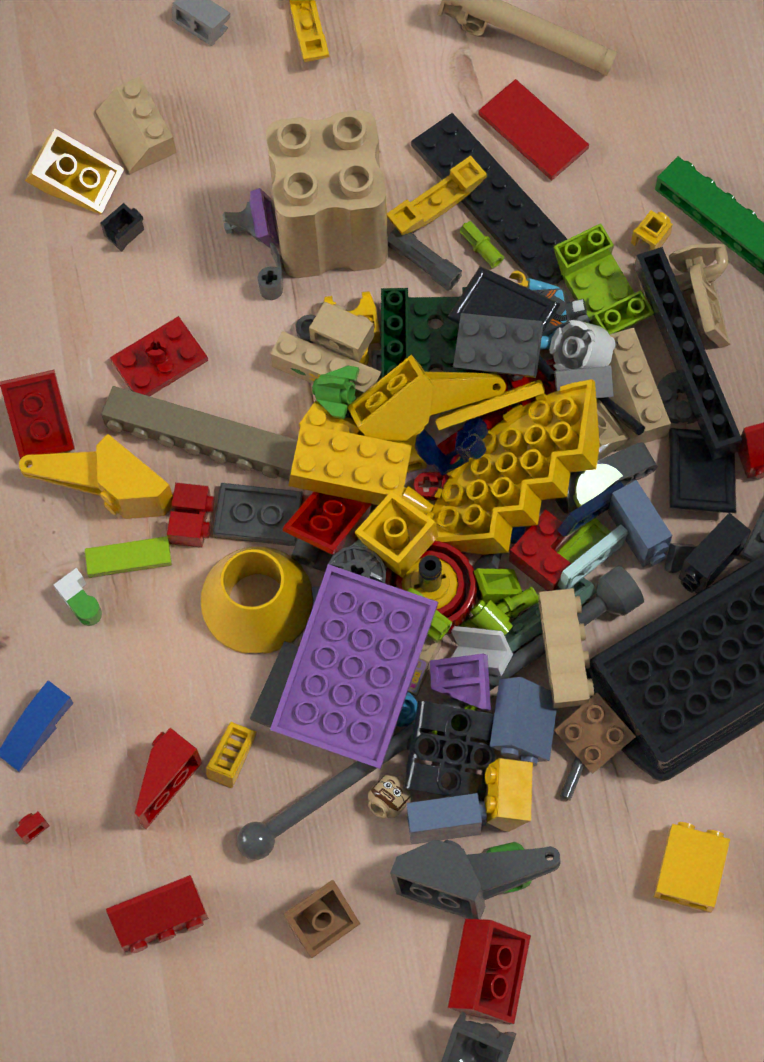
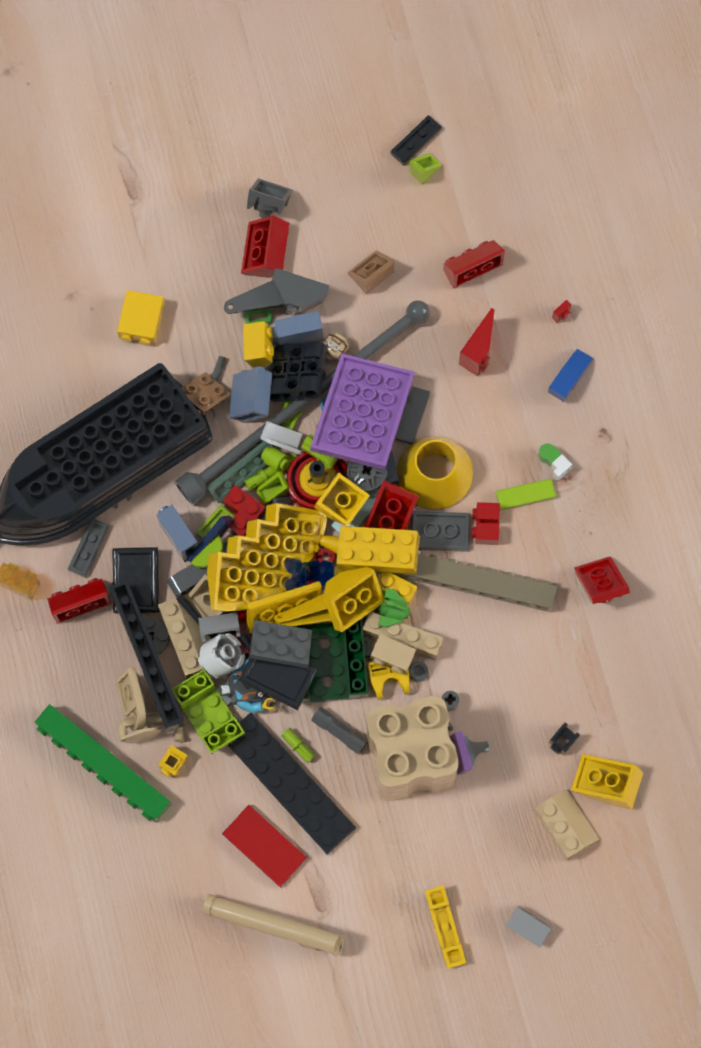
camera: 175 degrees right, 5 degrees up
(109, 472) = (542, 543): yellow slope -> none
(159, 358) = (523, 640): red plate -> none
(224, 771) = (450, 356): yellow slope -> none
(439, 198) = (333, 773): yellow slope -> none
(463, 679) = (292, 415): medium lavender wing -> none
(564, 649) = (226, 438): tan brick -> none
(593, 558) = (208, 509): light aqua tile -> none
(676, 555) = (149, 520): dark grey tile -> none
(714, 554) = (127, 514): black window -> none

